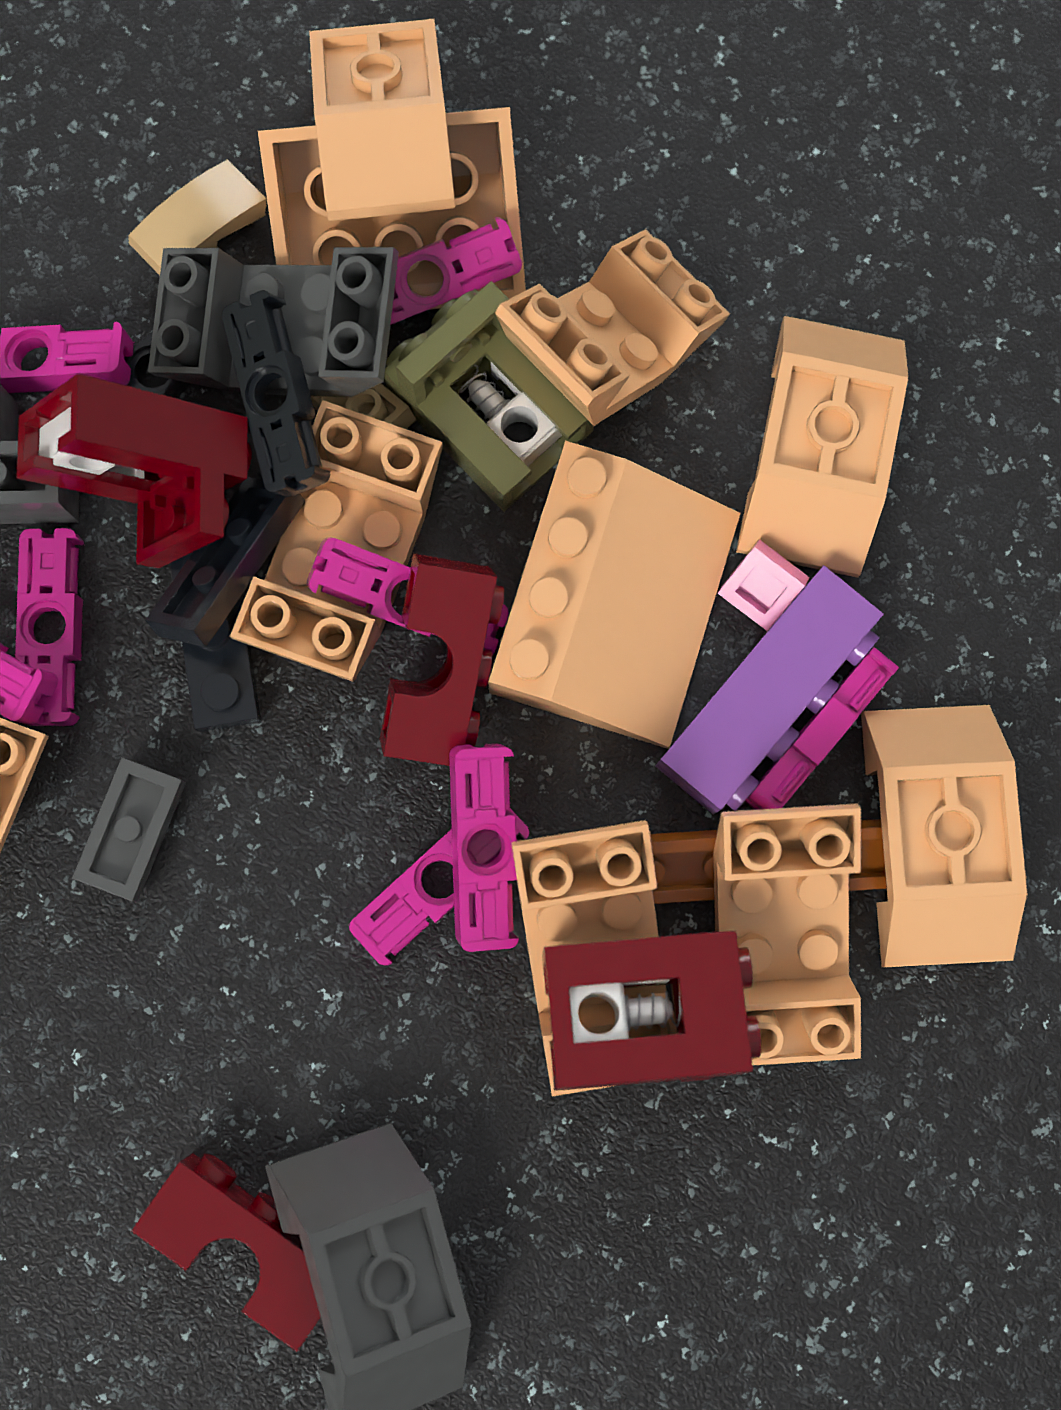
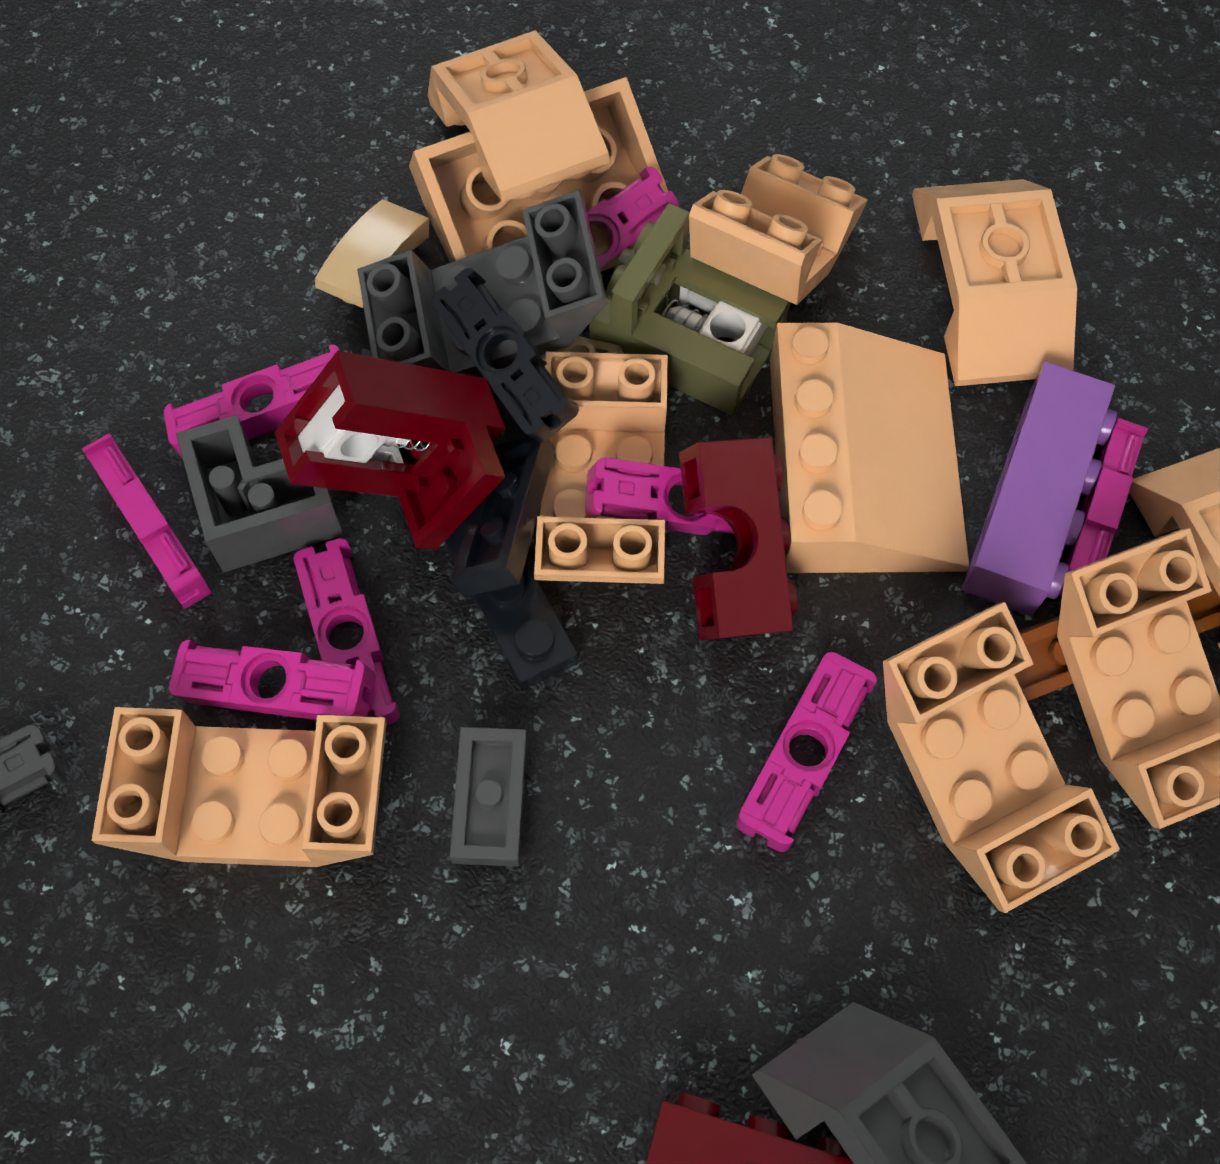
camera: 15 degrees left, 15 degrees down
(482, 890) = (854, 740): dark pink piece -> none
(707, 1001) = (1098, 743): dark red brick -> none
(763, 585) = (994, 401): bright pink plate -> none

